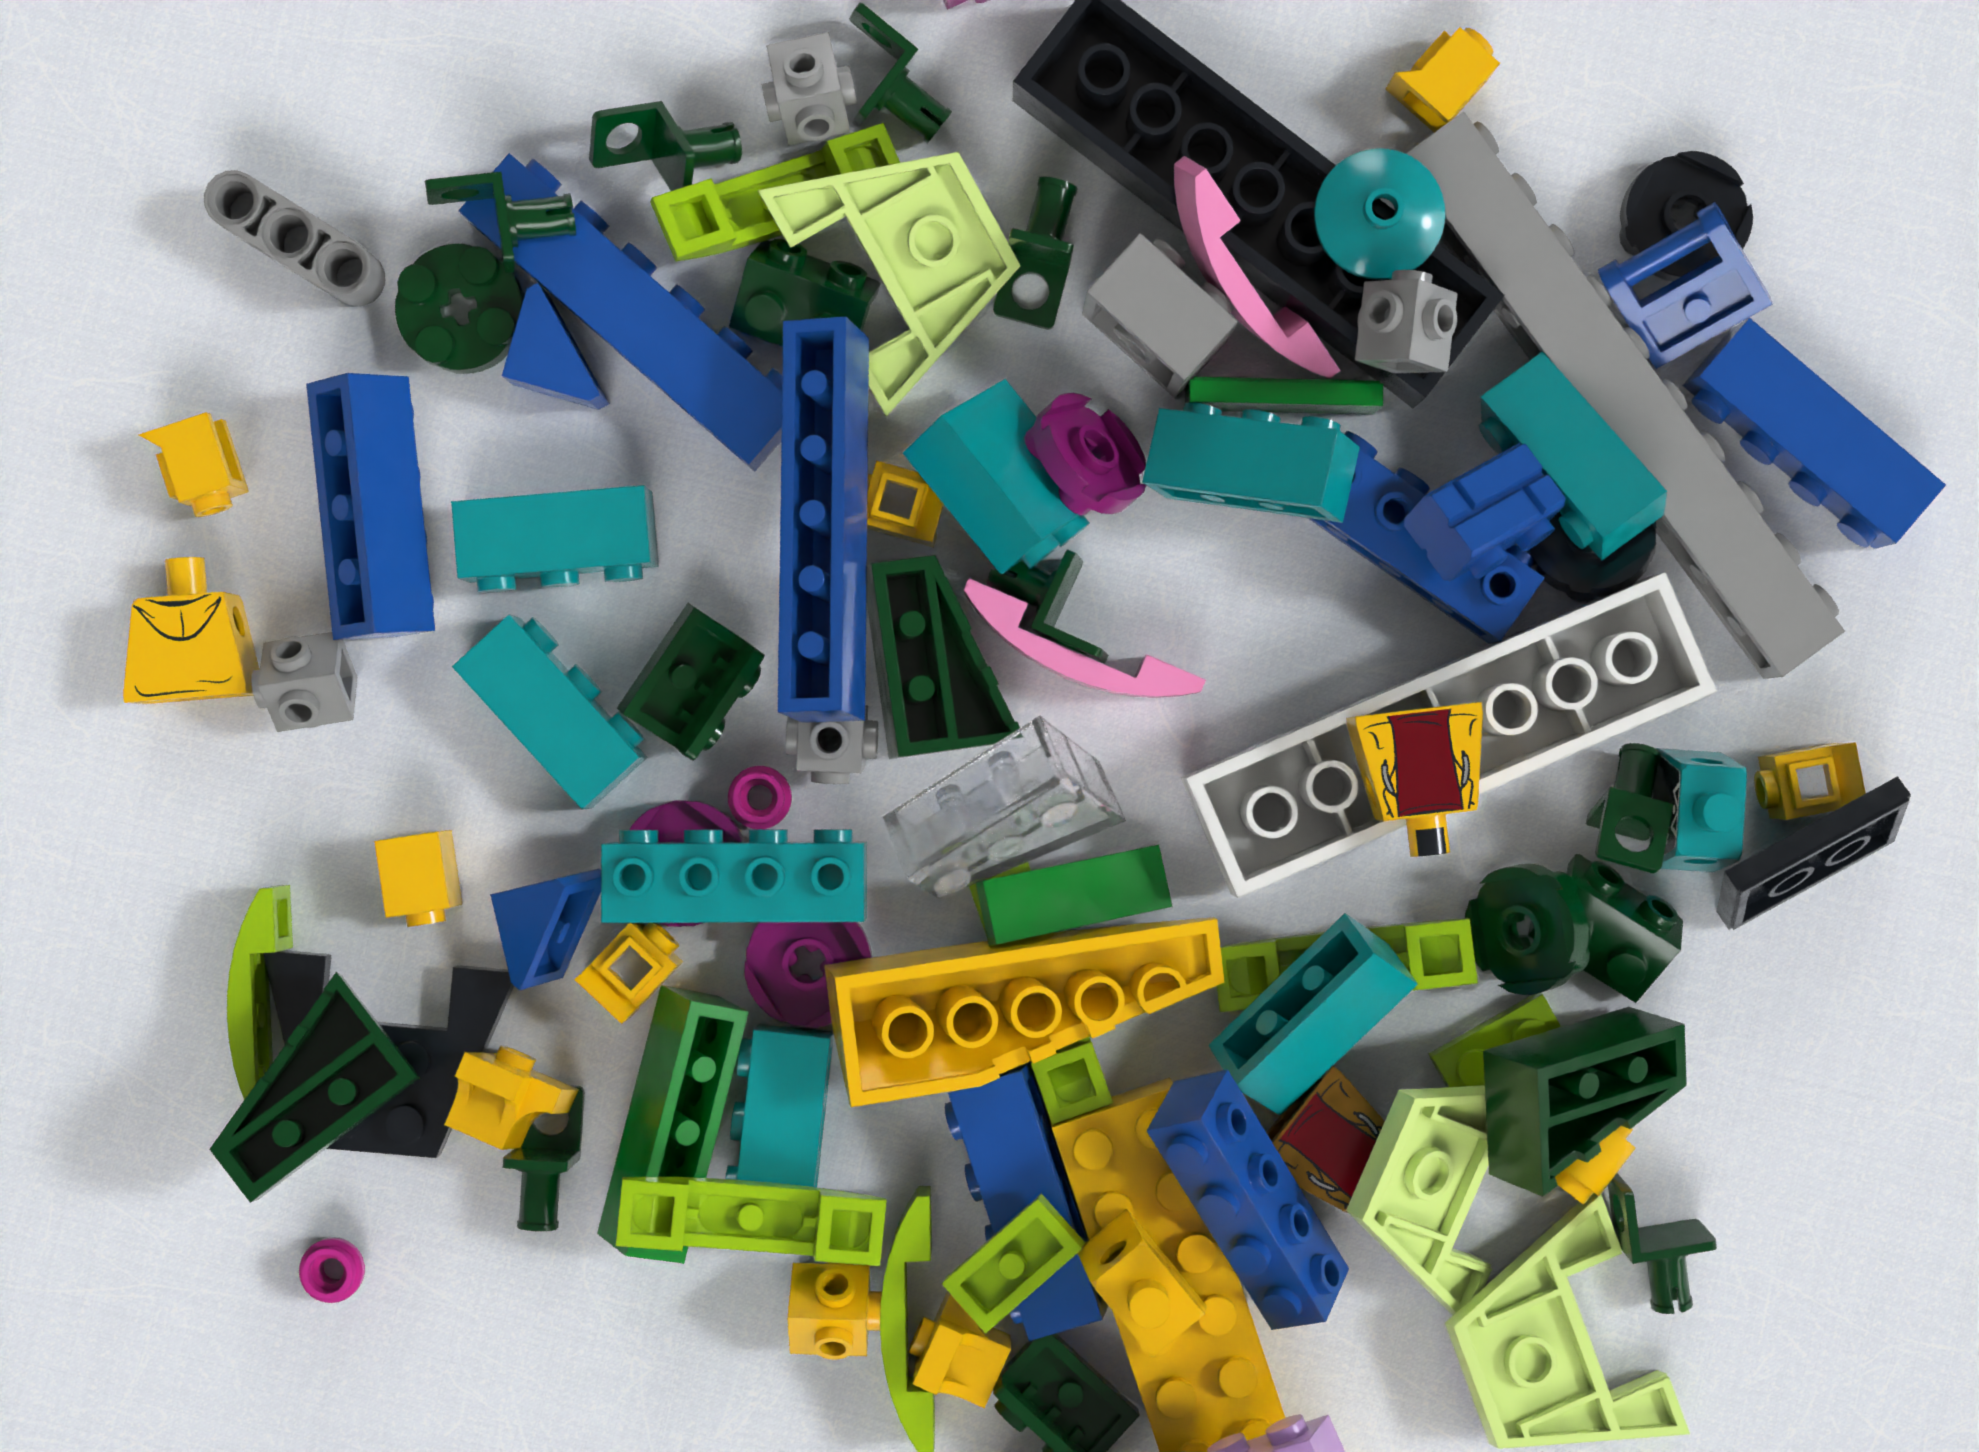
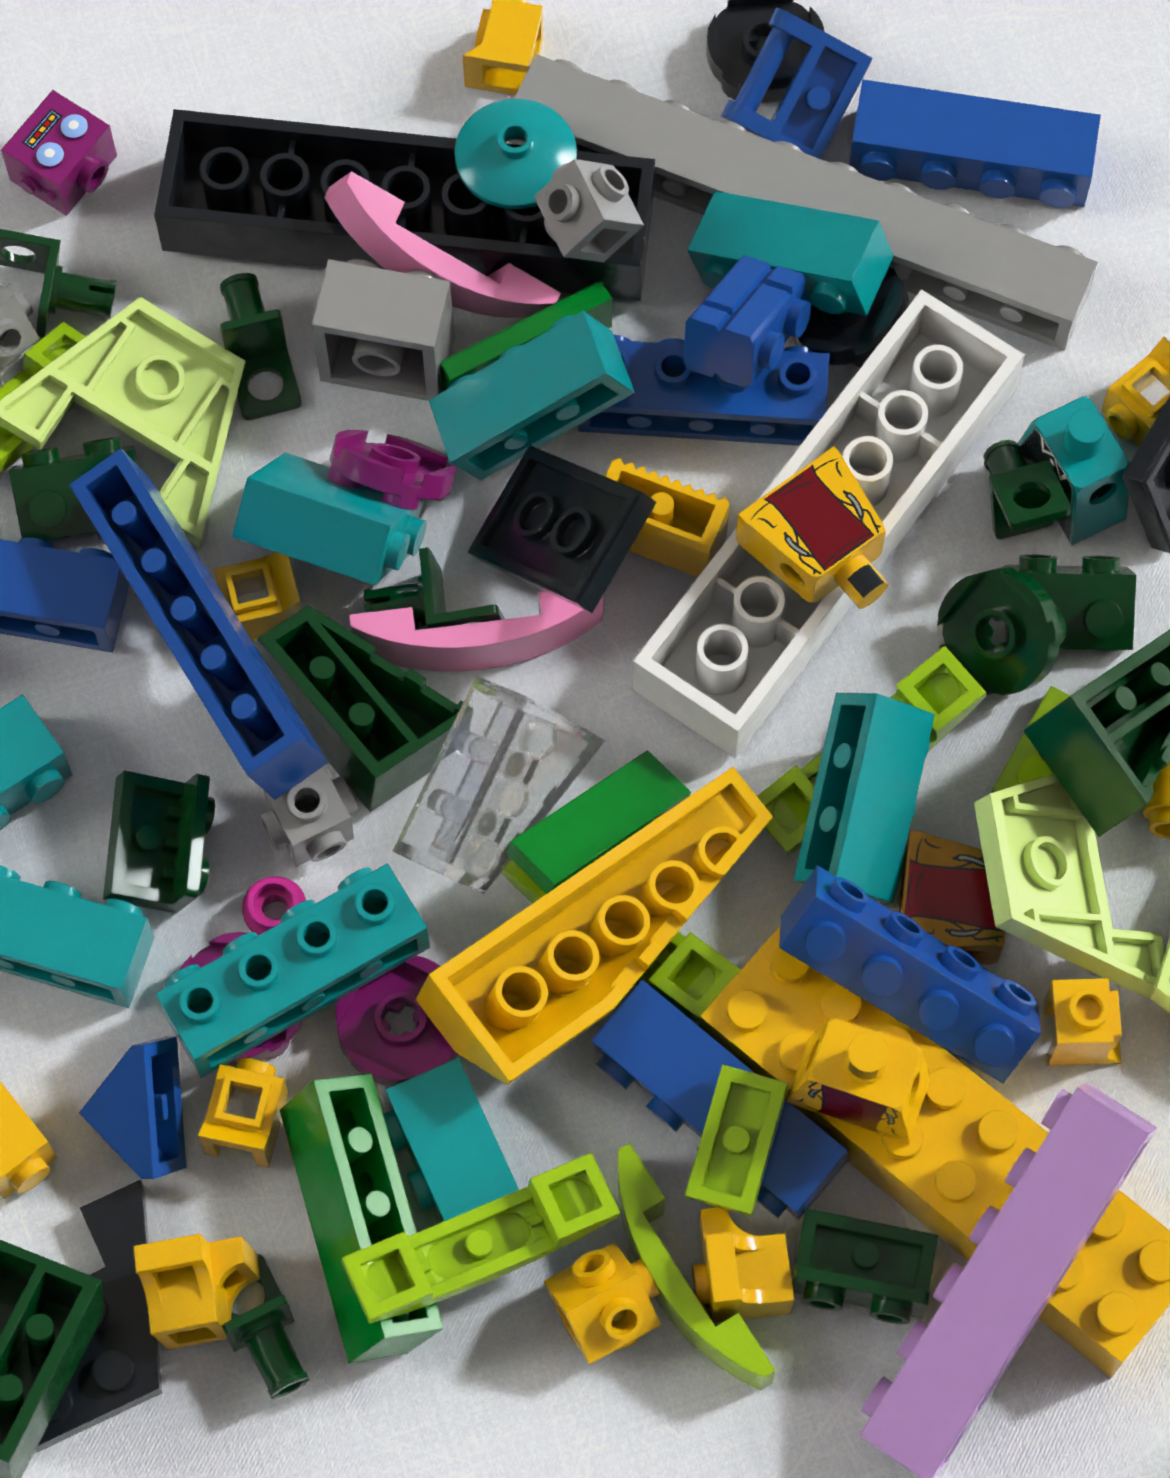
camera: 30 degrees left, 20 degrees down
(1200, 612) = (561, 528): none -> black tile
(1297, 646) = (684, 524): none -> yellow brick
(1377, 1312) = (1084, 1022): none -> yellow window

